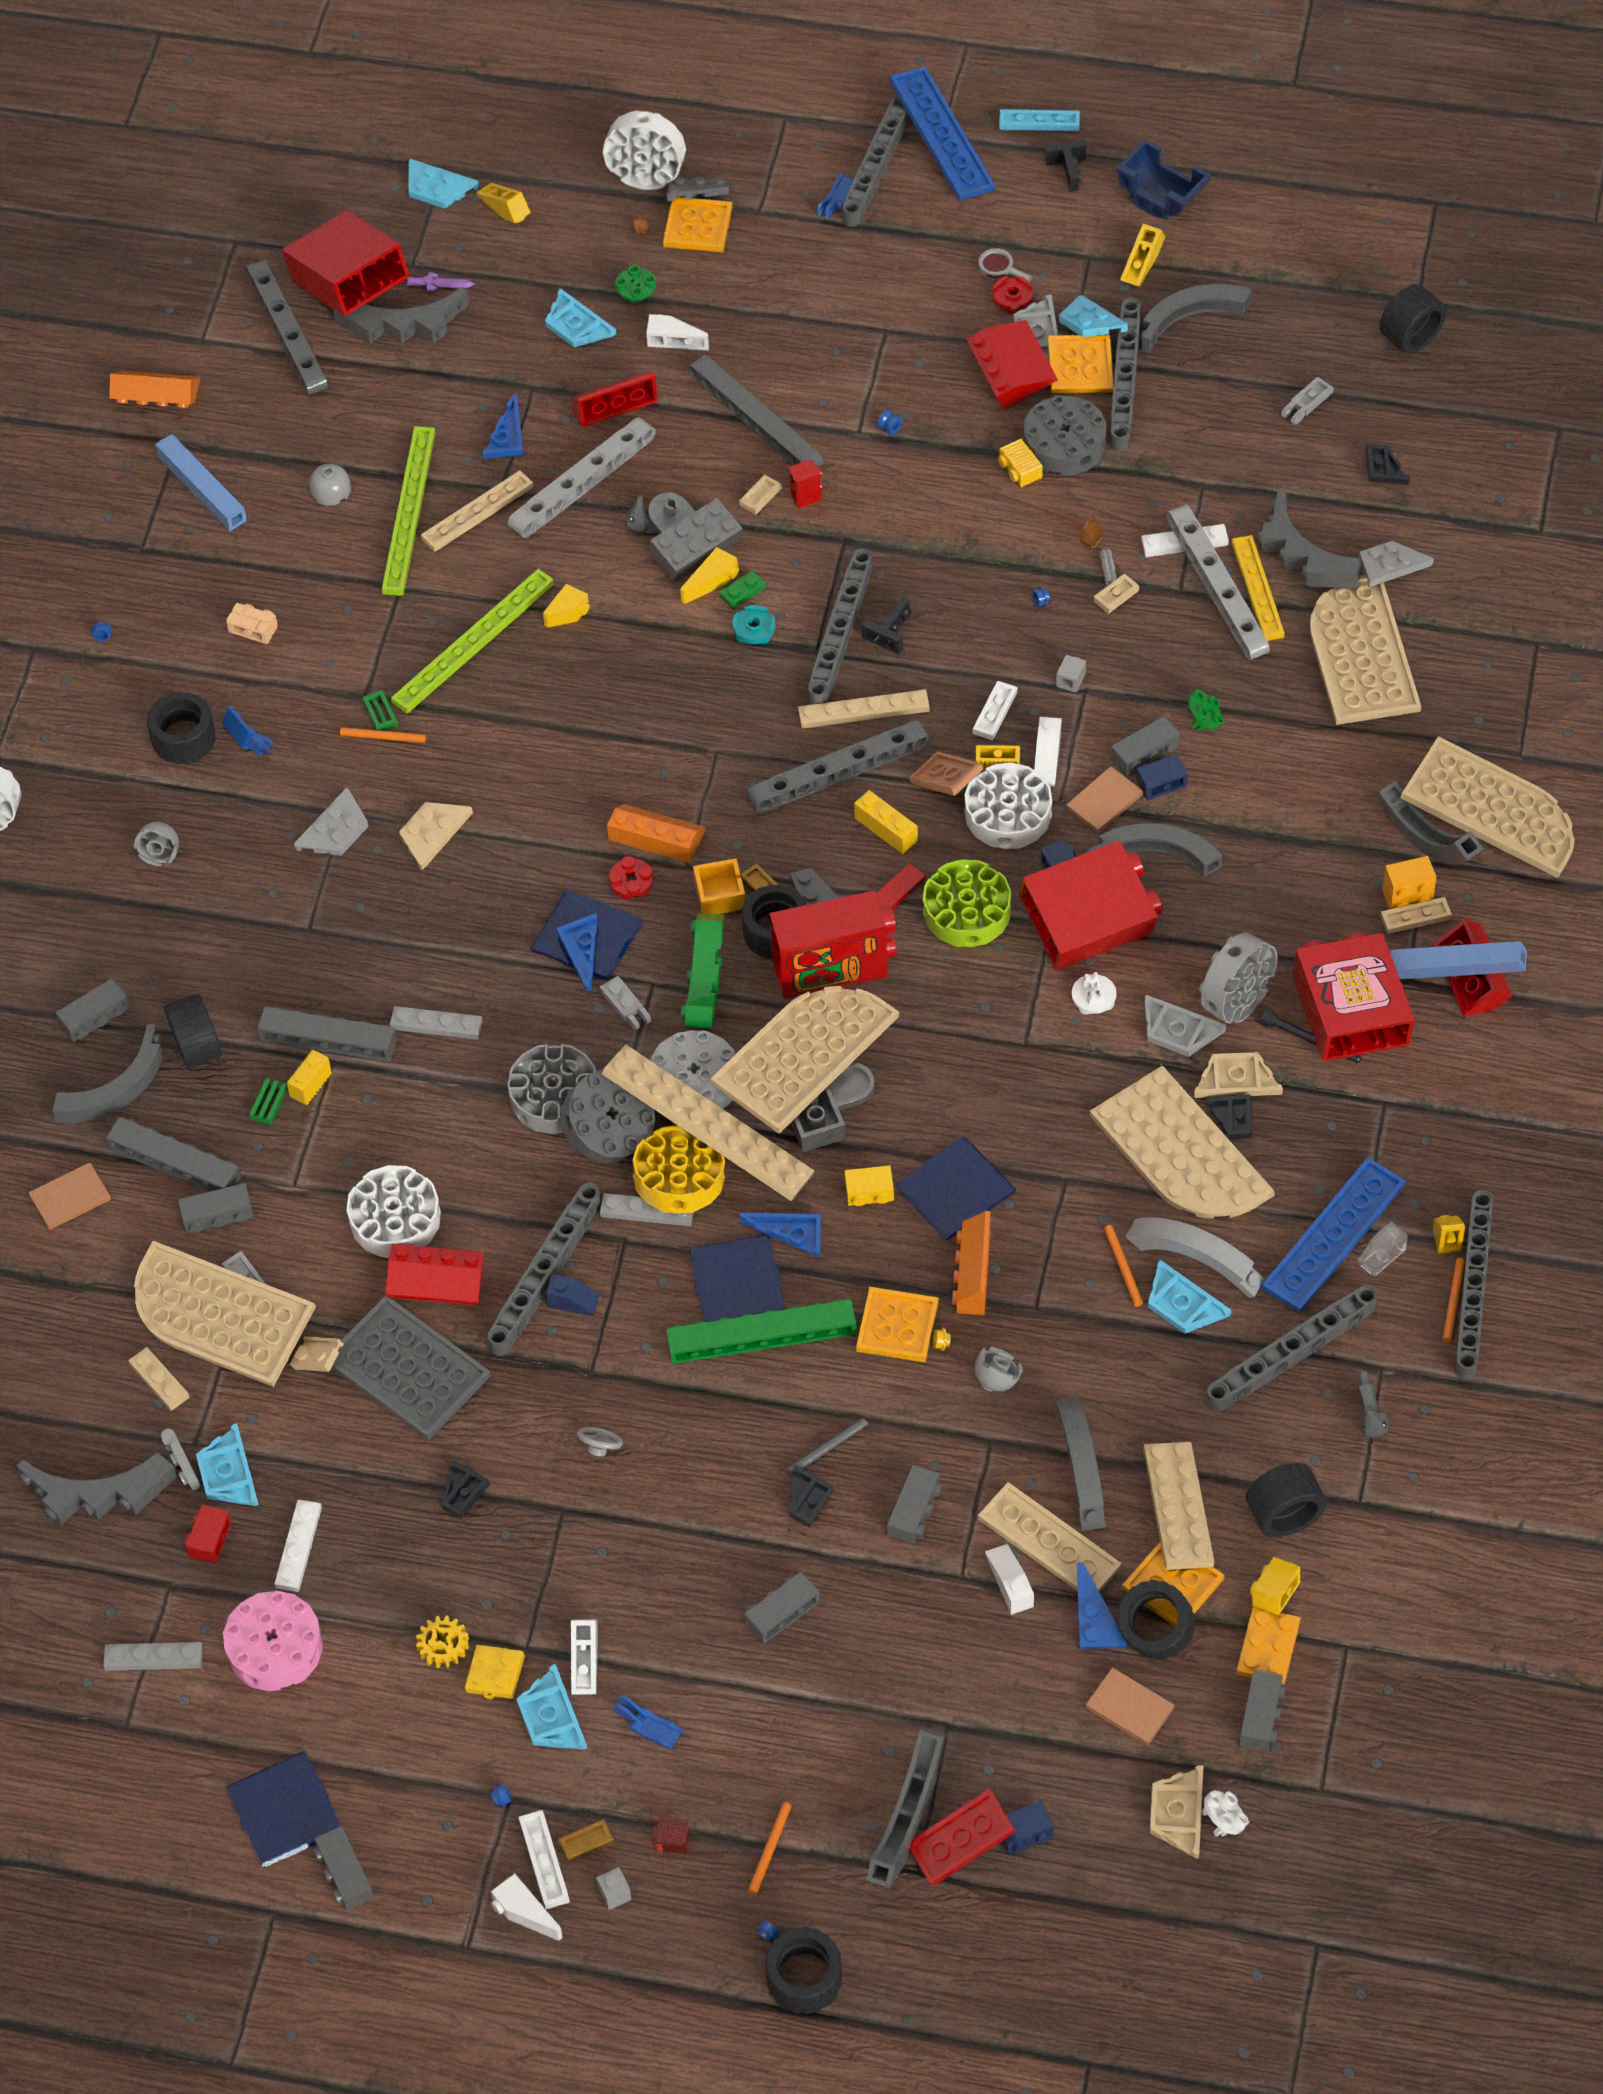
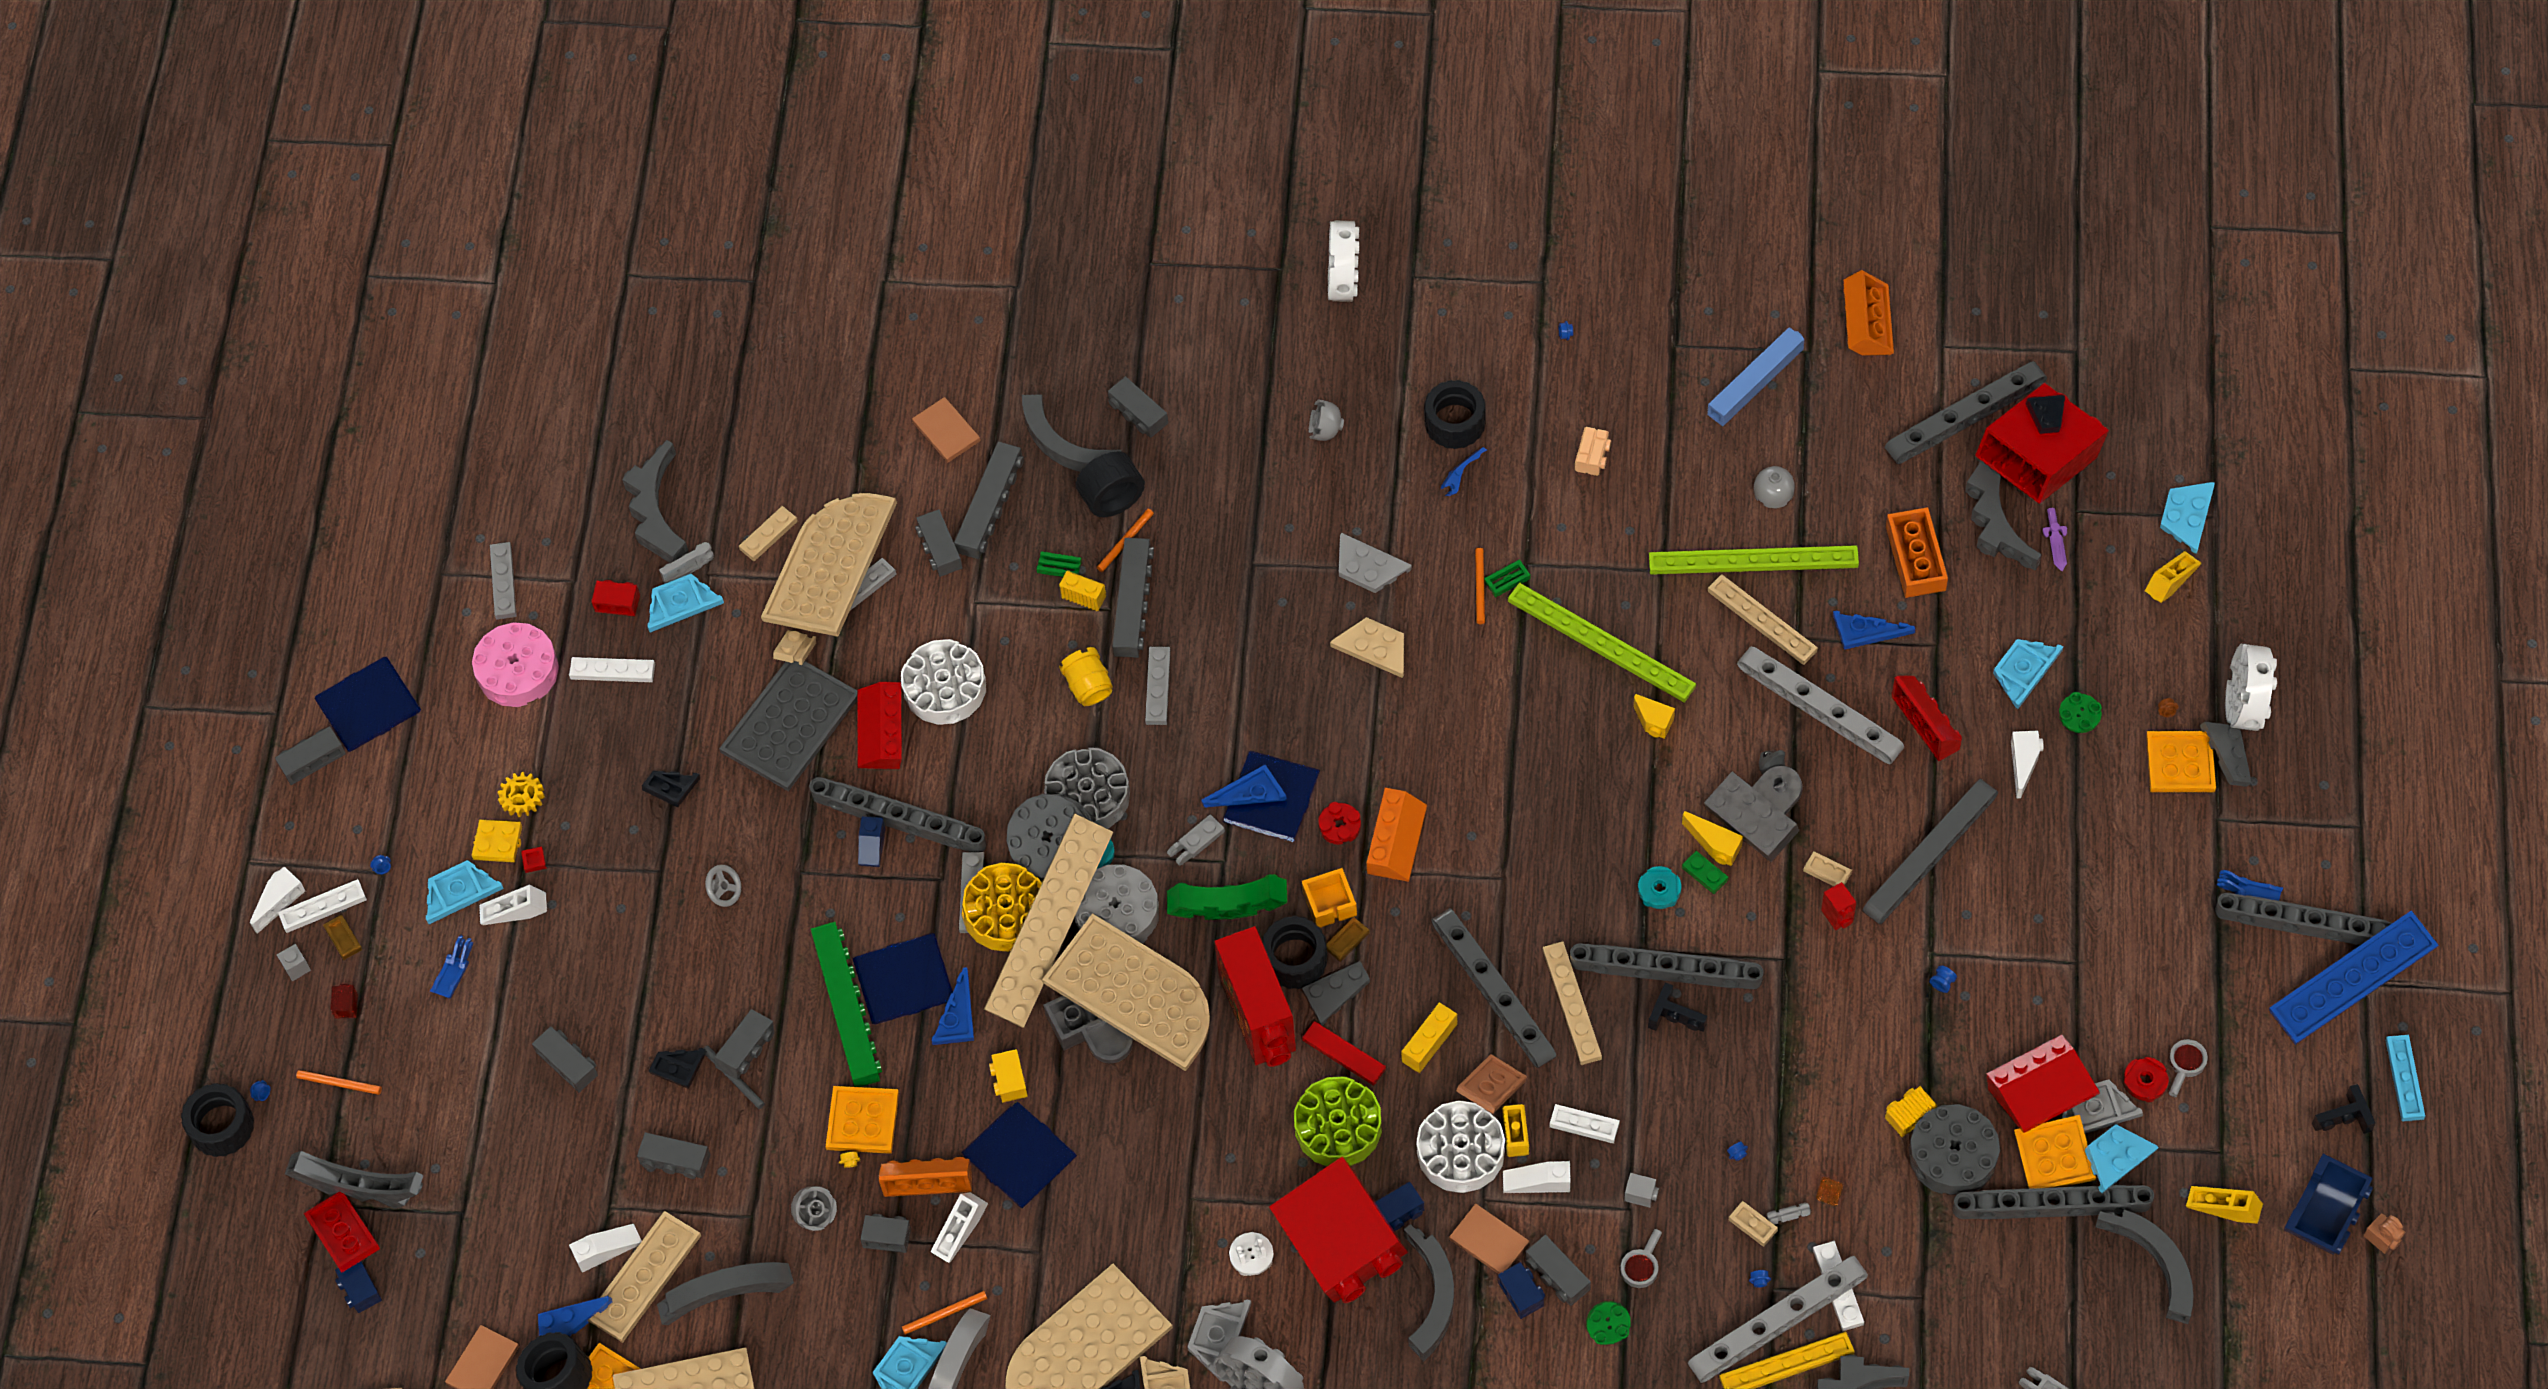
camera: 85 degrees right, 5 degrees up
(252, 1038) = (1120, 545): none -> orange bar
(322, 244) = (2046, 412): none -> black wing
(419, 1076) = (1087, 676): none -> yellow piece
(434, 380) = (1916, 552): none -> orange brick
(527, 1632) = (533, 859): none -> red plate
(795, 1427) = (744, 1044): none -> dark grey brick
(1031, 1241) = (959, 1225): none -> white slope
(1031, 1309) = (886, 1233): none -> dark grey brick
(1146, 685) = (1639, 1266): none -> piece
(1171, 595) = (1759, 1278): none -> blue plate
(1188, 152) = (2385, 1232): none -> nougat brick

